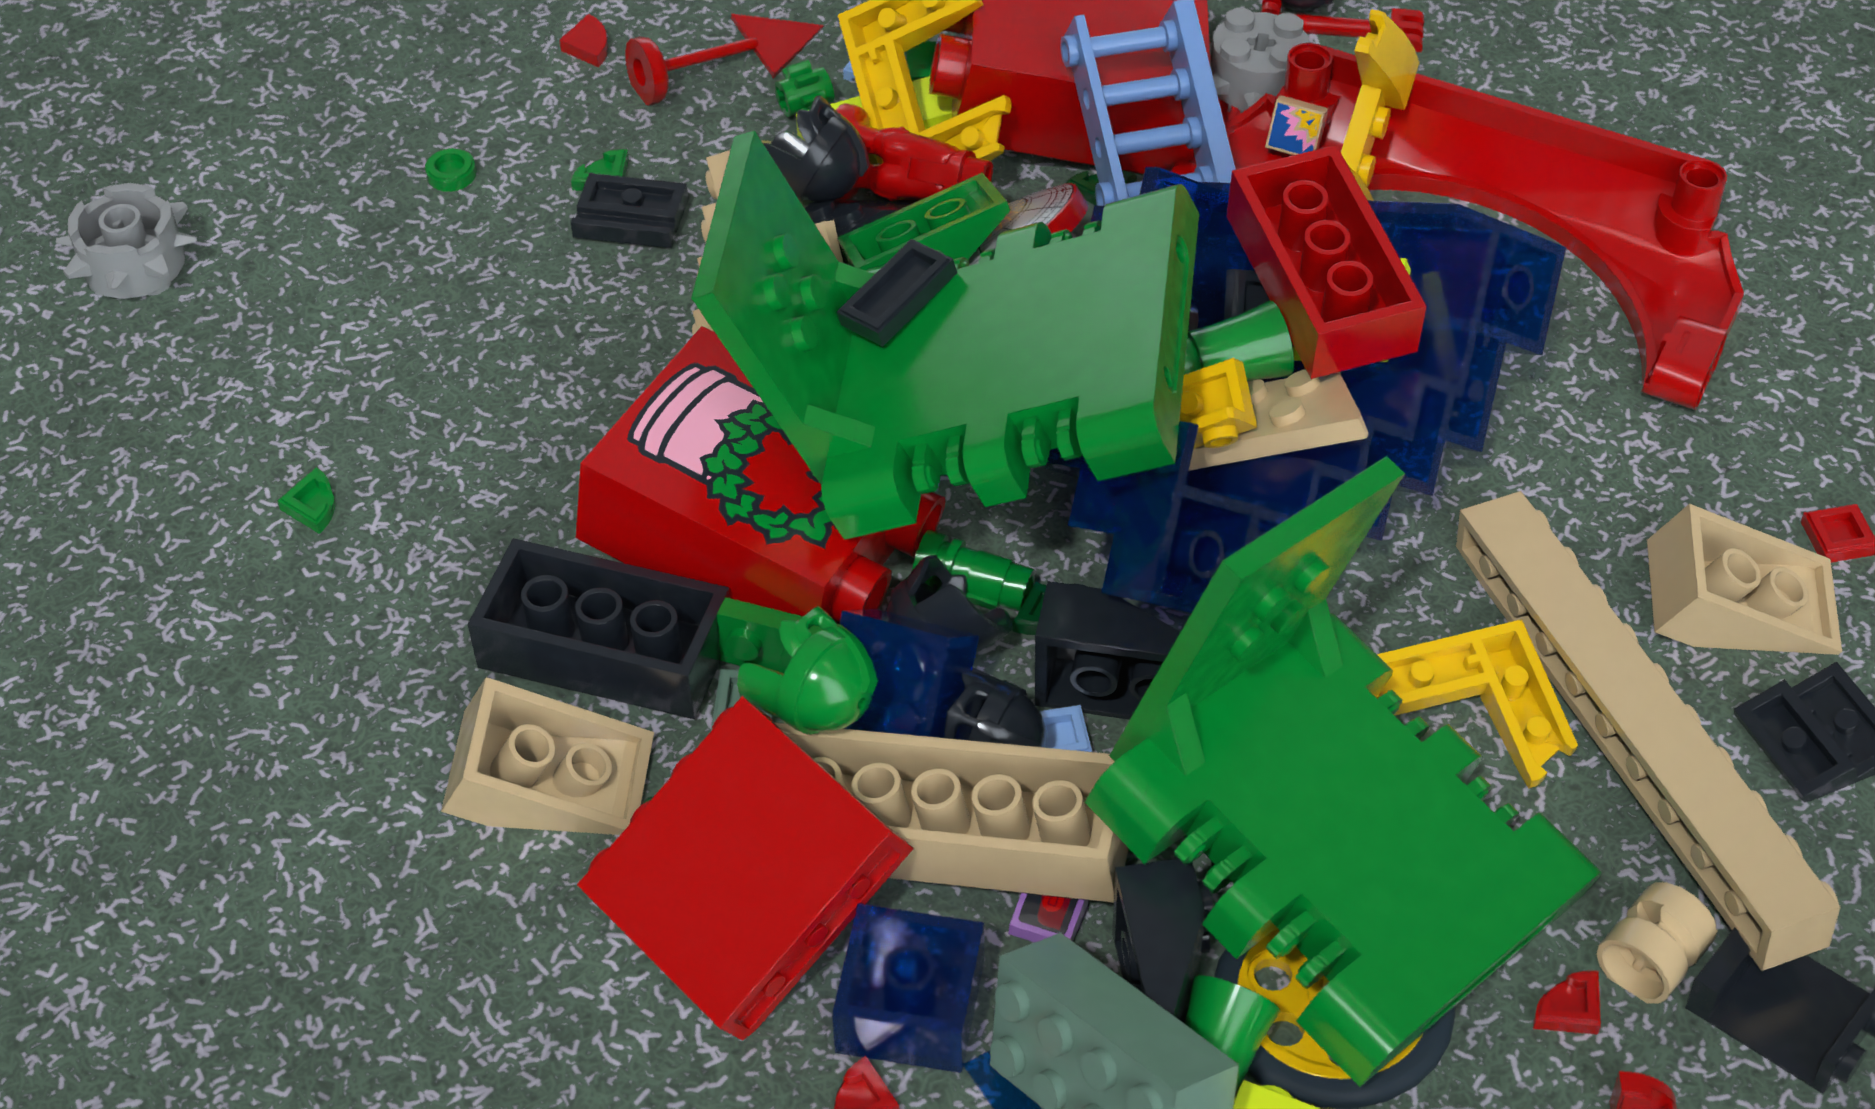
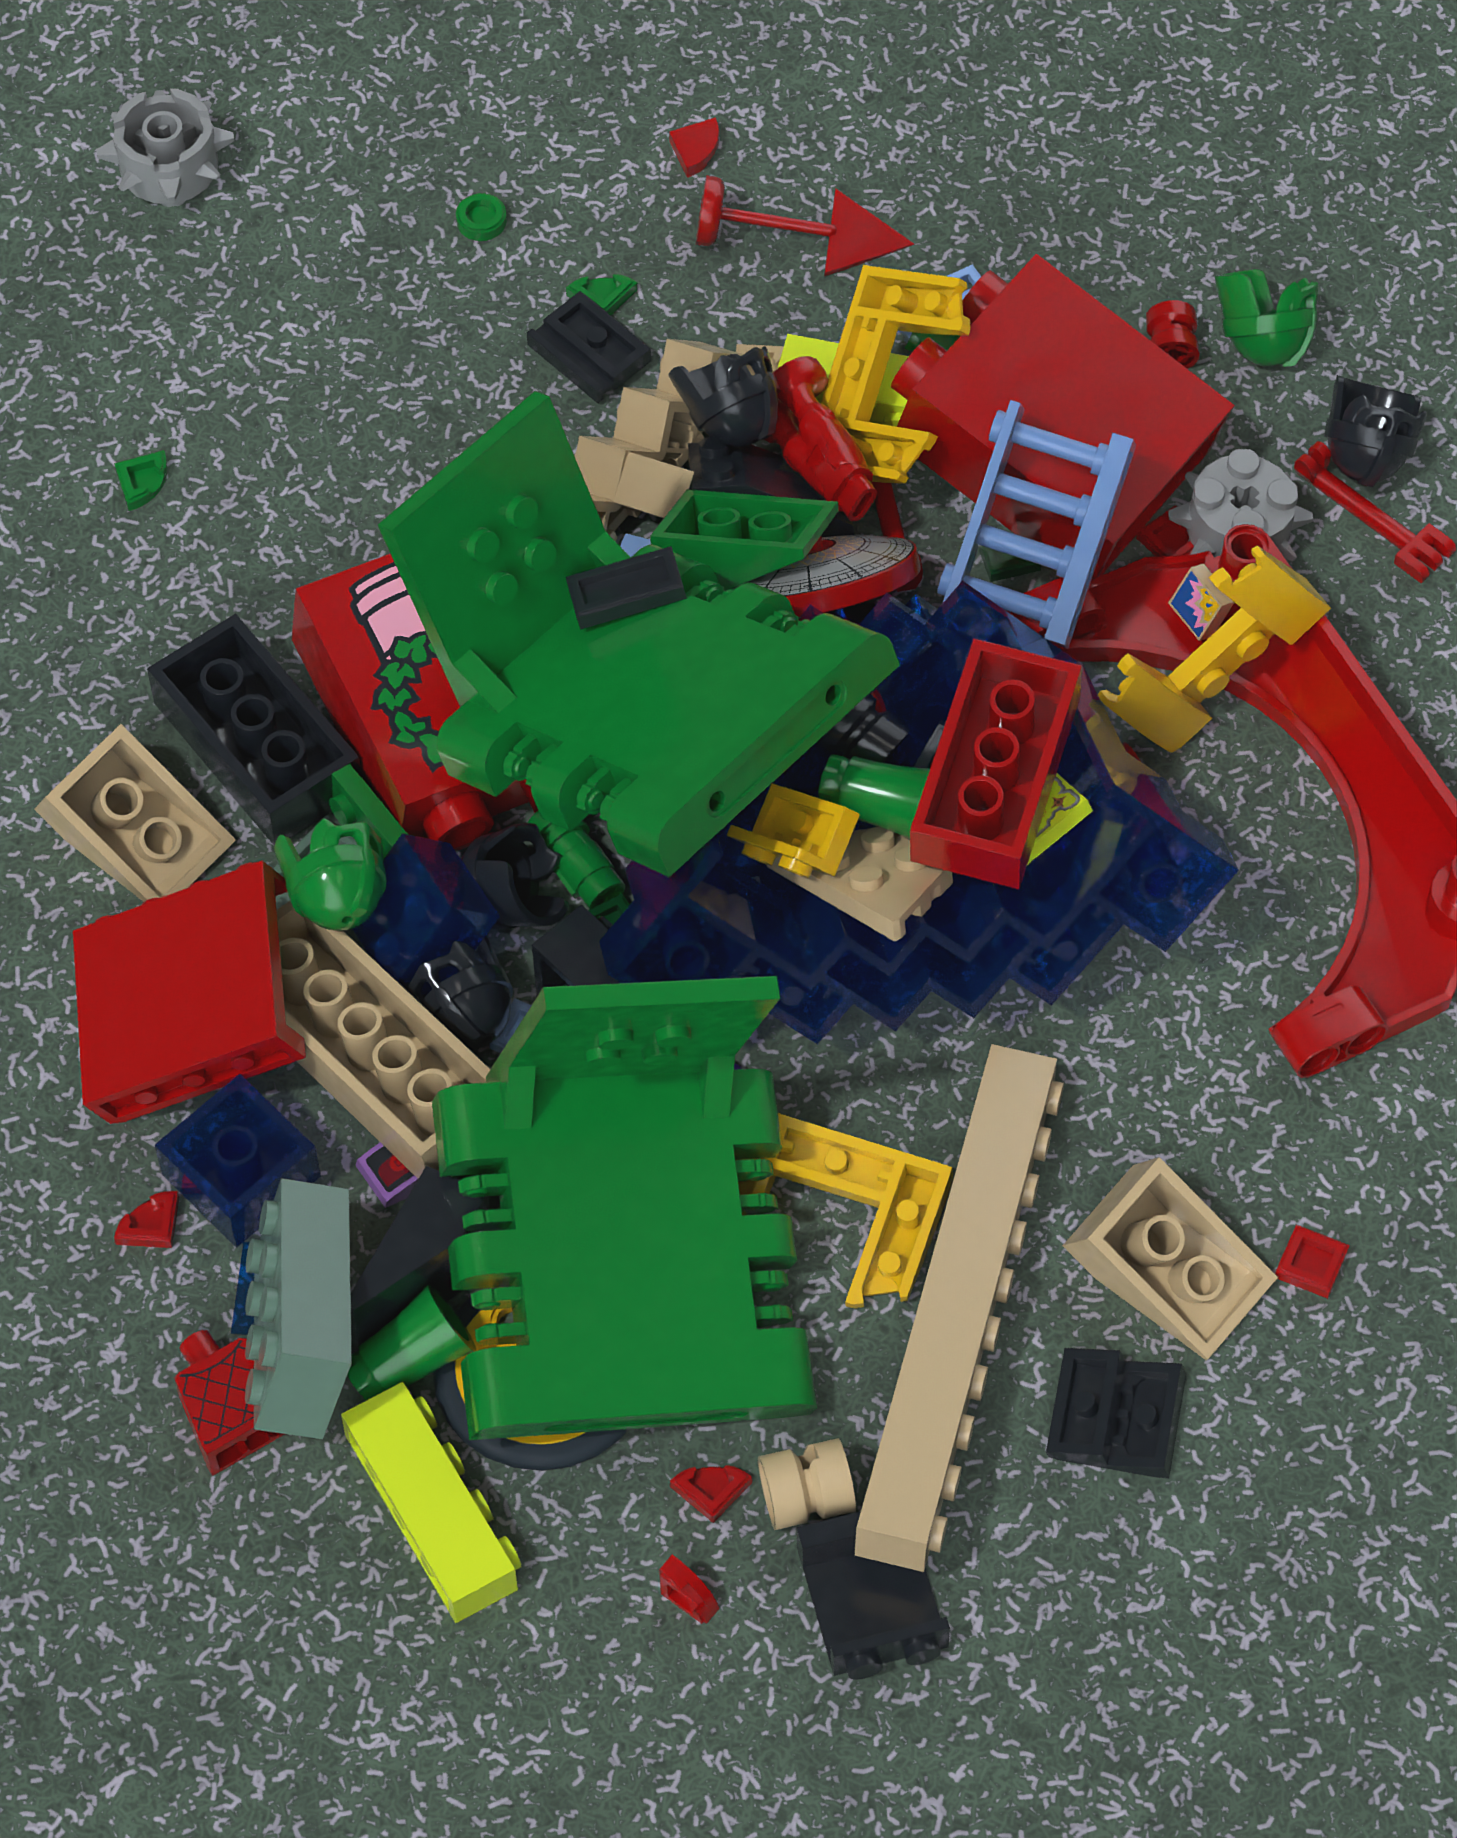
camera: 35 degrees right, 10 degrees up
(801, 87) = (823, 309): green gear -> none

